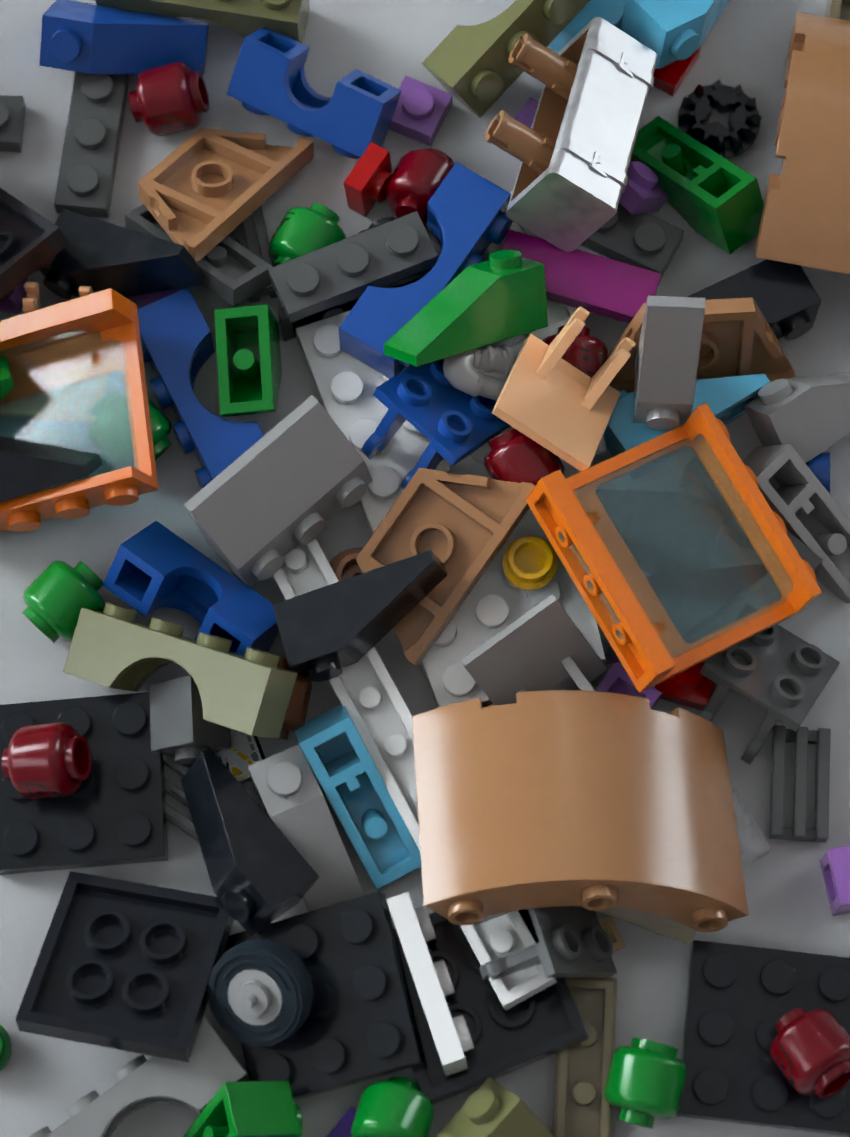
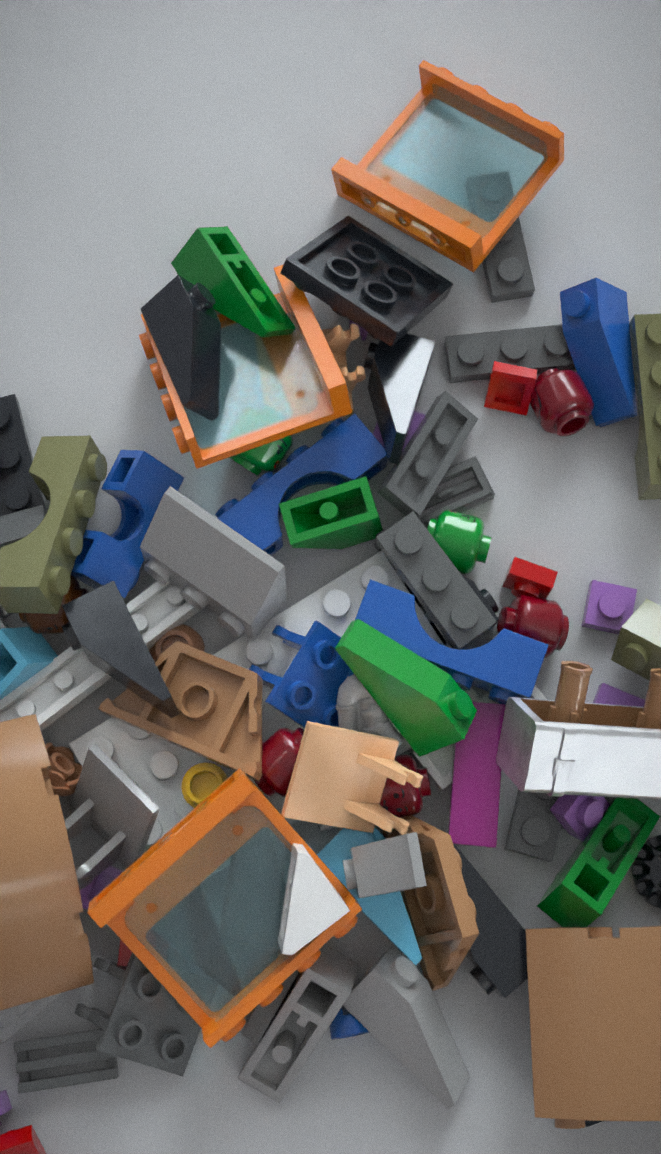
camera: 75 degrees right, 5 degrees up
(59, 595) = (107, 421): green head -> none
(137, 146) = (510, 388): none -> red plate
(217, 184) = (490, 456): medium nougat wing -> none
(273, 82) = (595, 482): blue arch -> none
(686, 459) = (309, 902): none -> white slope

